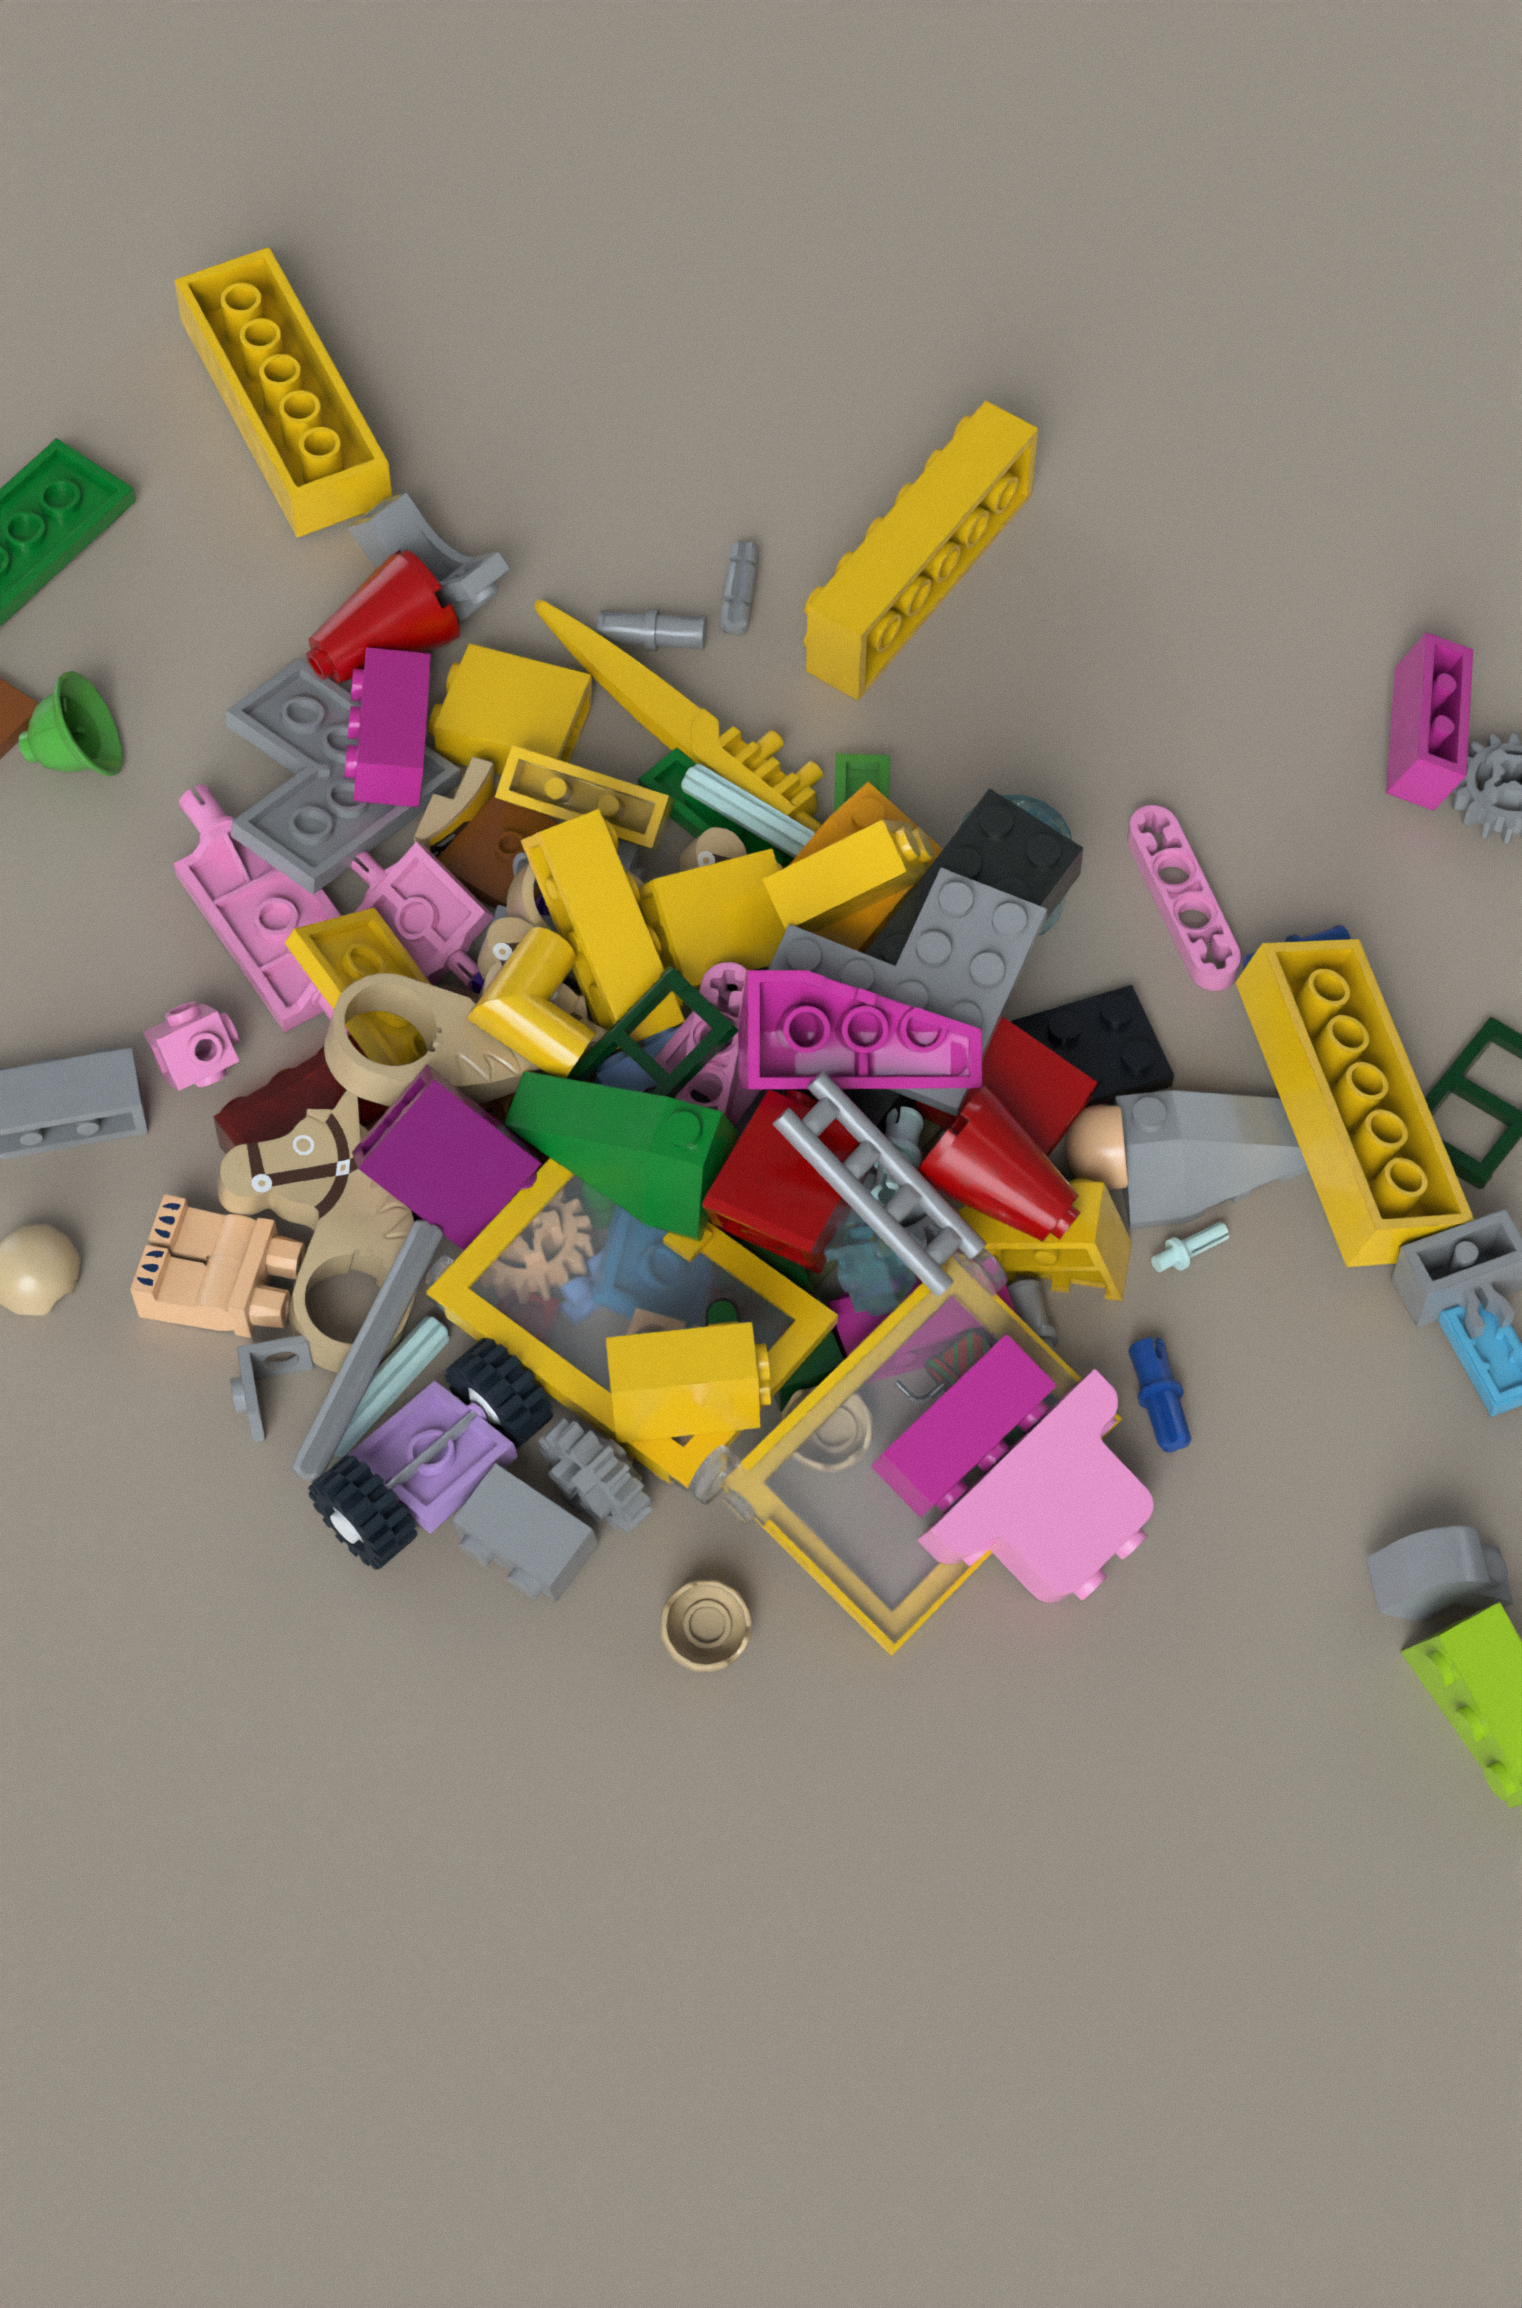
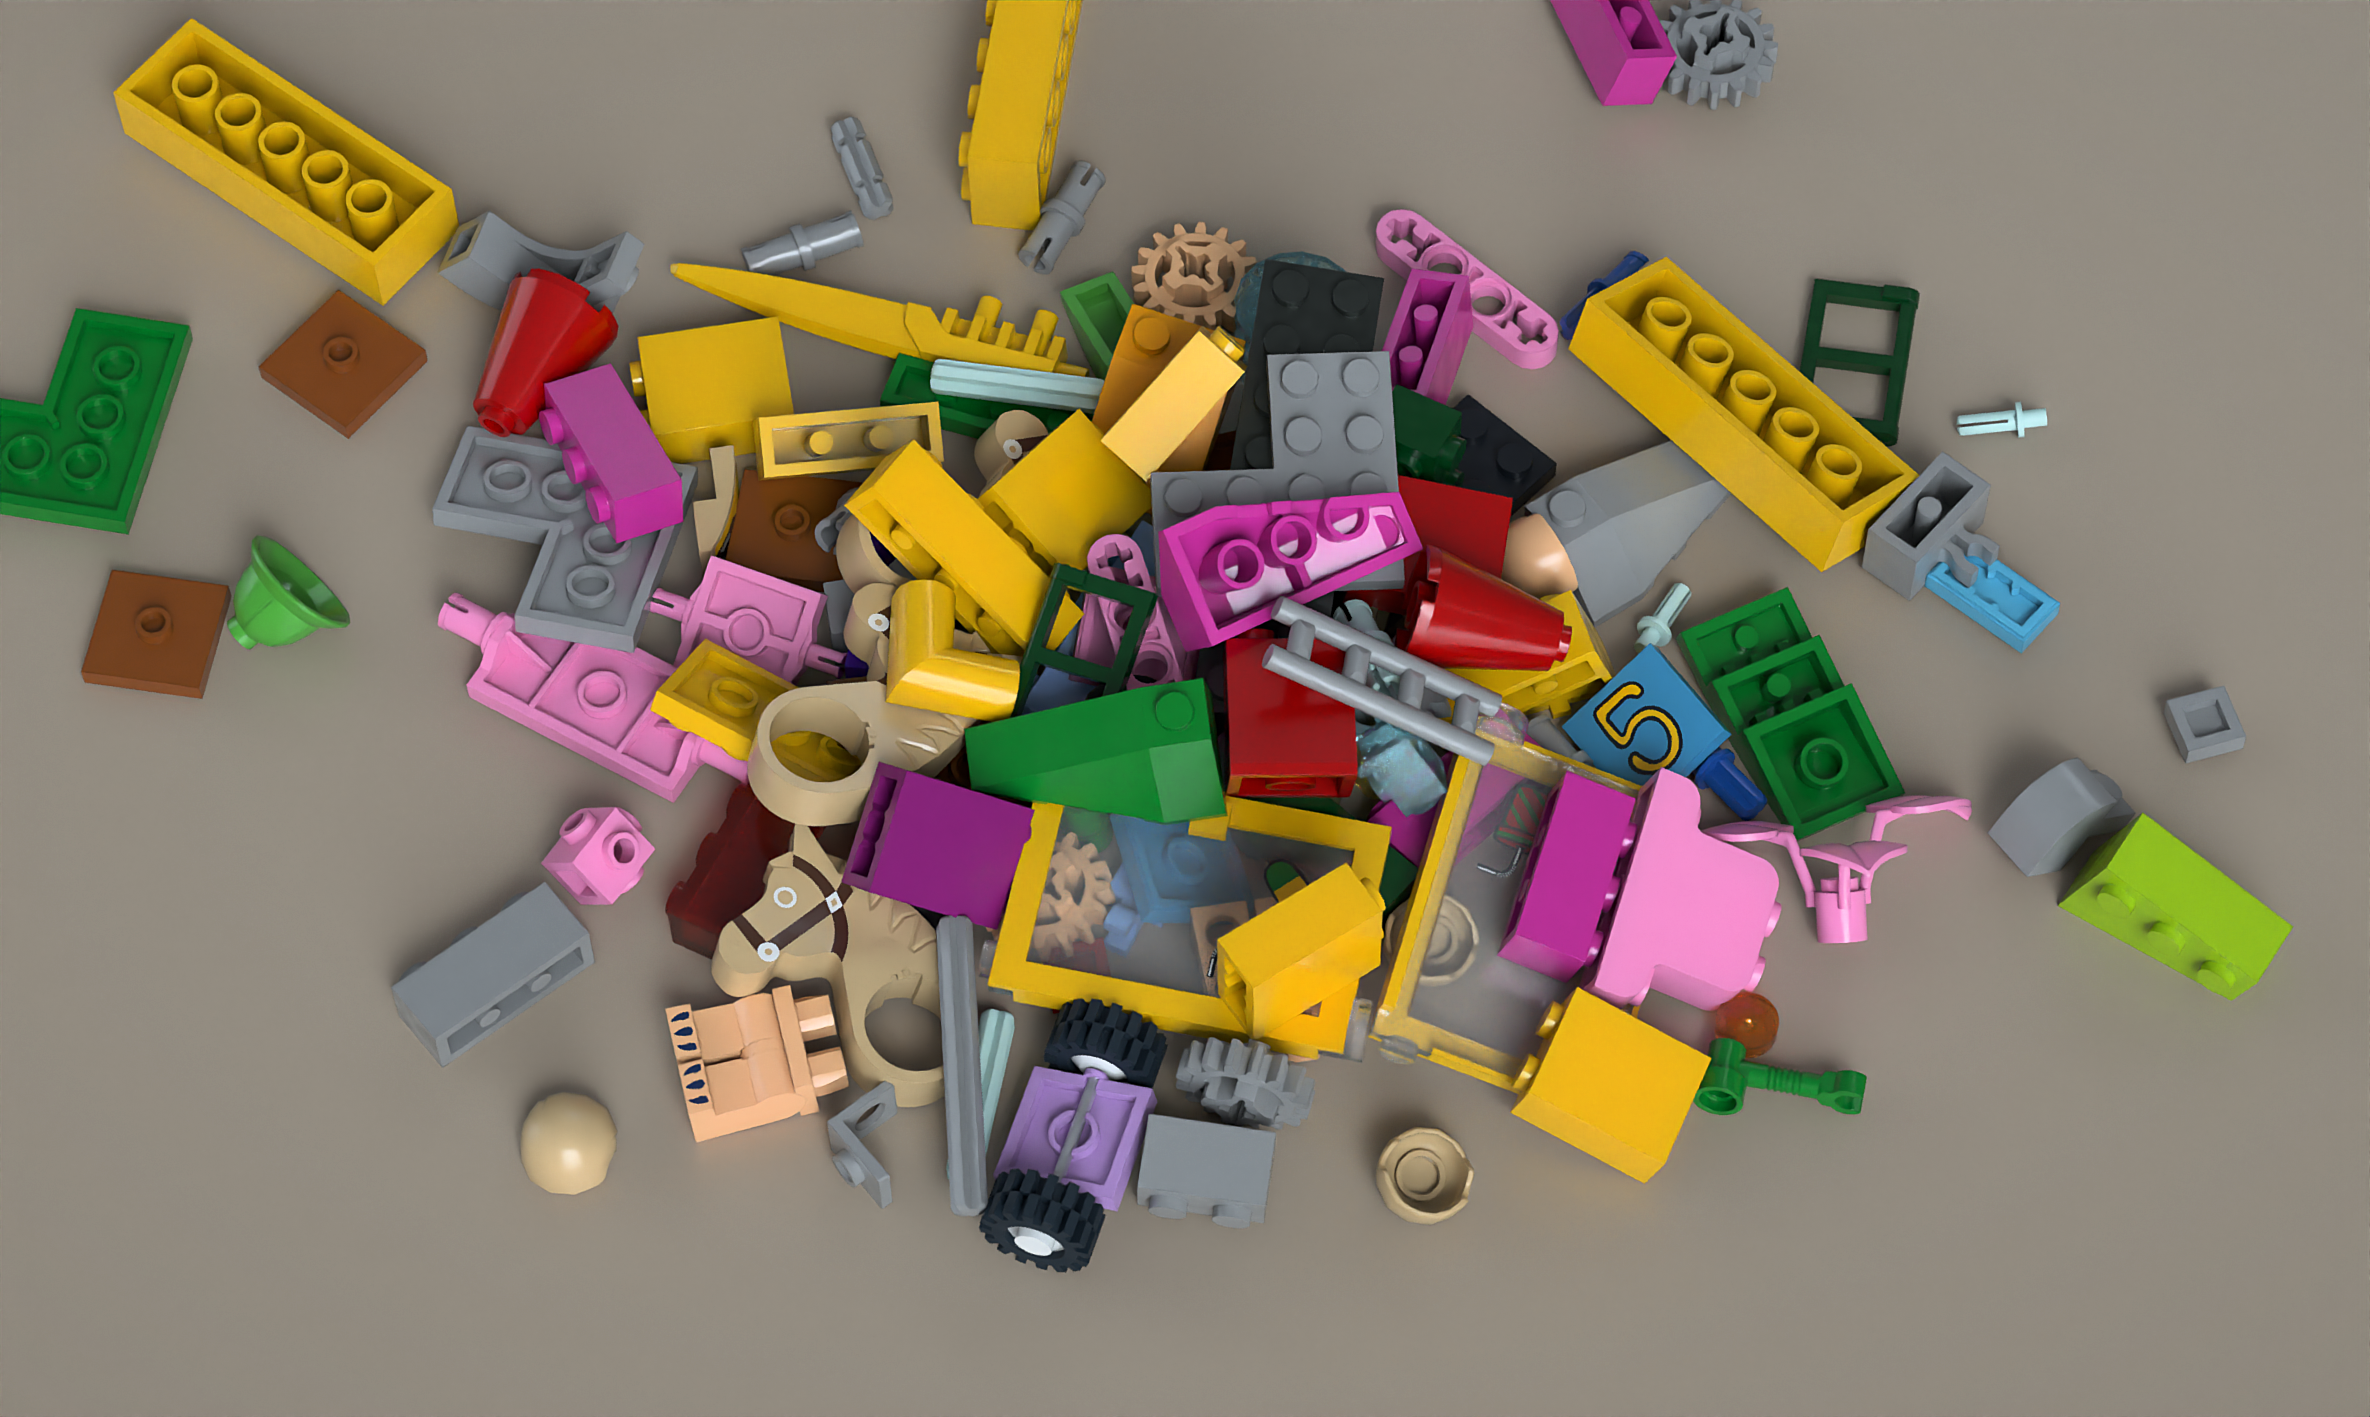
camera: 25 degrees left, 0 degrees up
(238, 570) = (343, 364): none -> dark orange plate
(877, 695) = (1062, 217): none -> light grey pin
(904, 1620) = (1608, 1084): none -> yellow brick
(948, 785) = (1194, 276): none -> light nougat gear
(1021, 1662) = (1729, 1075): none -> green brick
(1049, 1003) = (1427, 438): none -> dark green brick
(1063, 1628) = (1750, 1021): none -> clear orange tile
(1100, 936) = (1430, 333): none -> dark pink brick
(1120, 1328) = (1646, 722): none -> dark azure tile
(1200, 1556) = (1841, 900): none -> bright pink plant
(1253, 1378) = (1790, 714): none -> green slope

